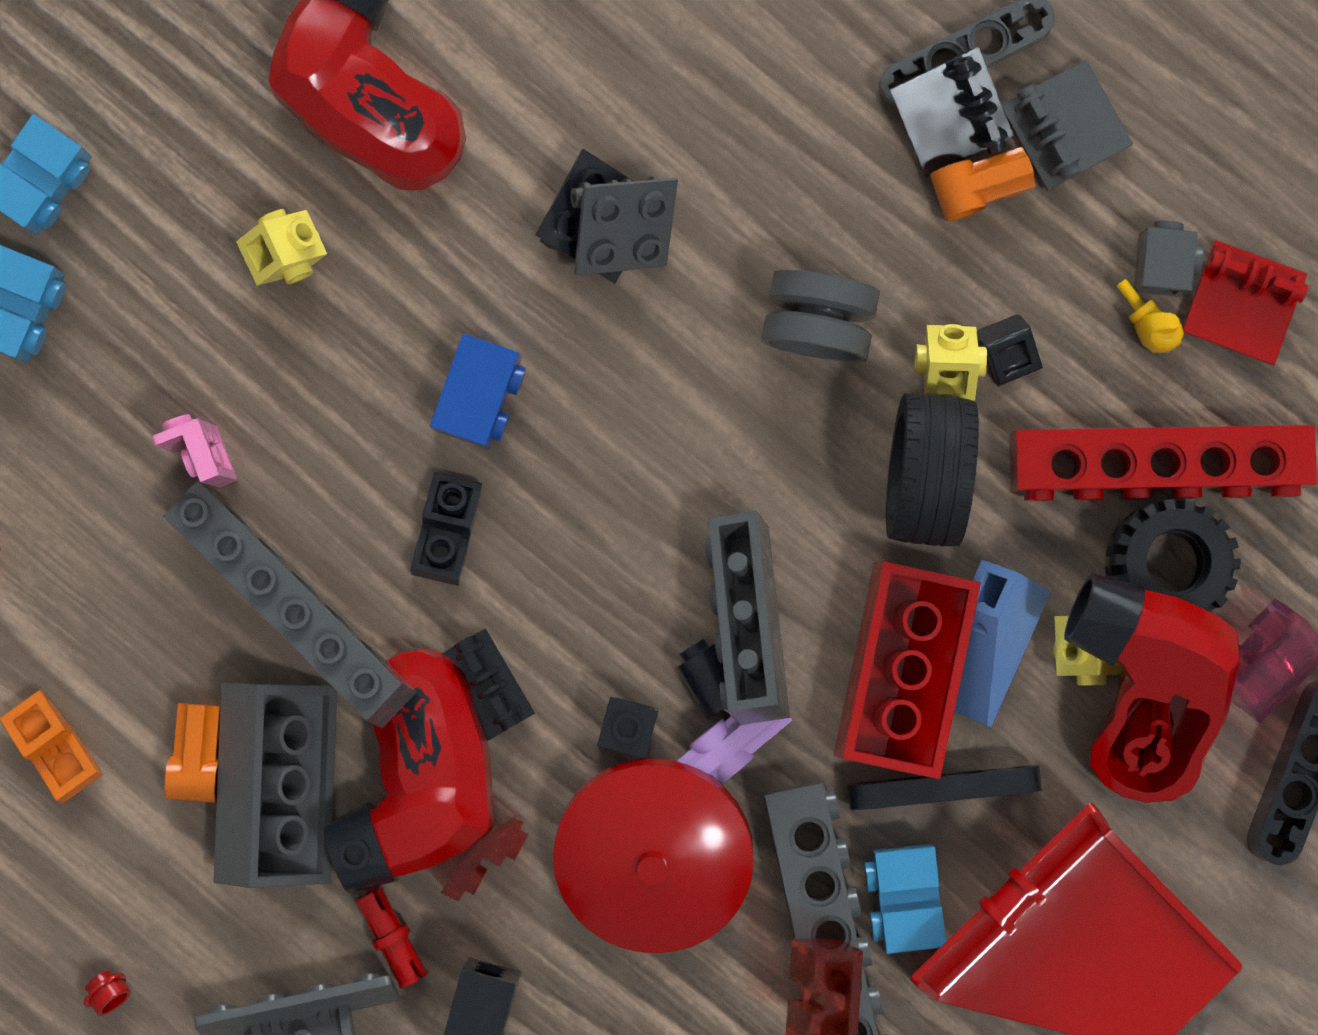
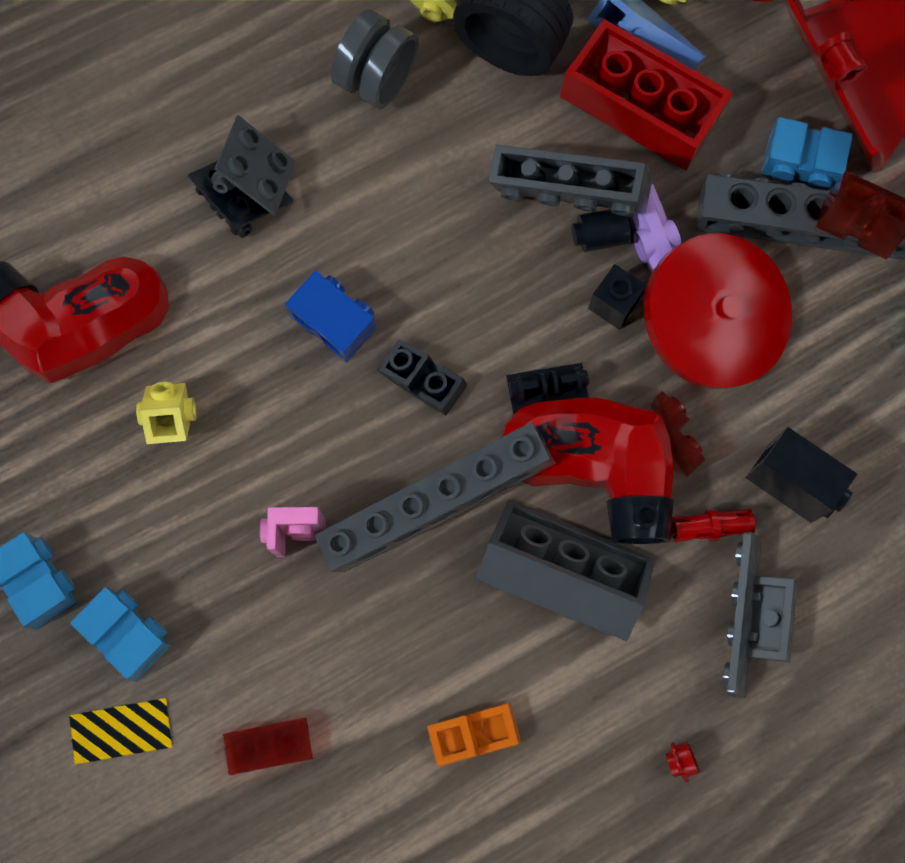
camera: 70 degrees left, 10 degrees down
(194, 763) = (530, 625): orange piece -> none
(947, 788) = (735, 110): black beam -> none

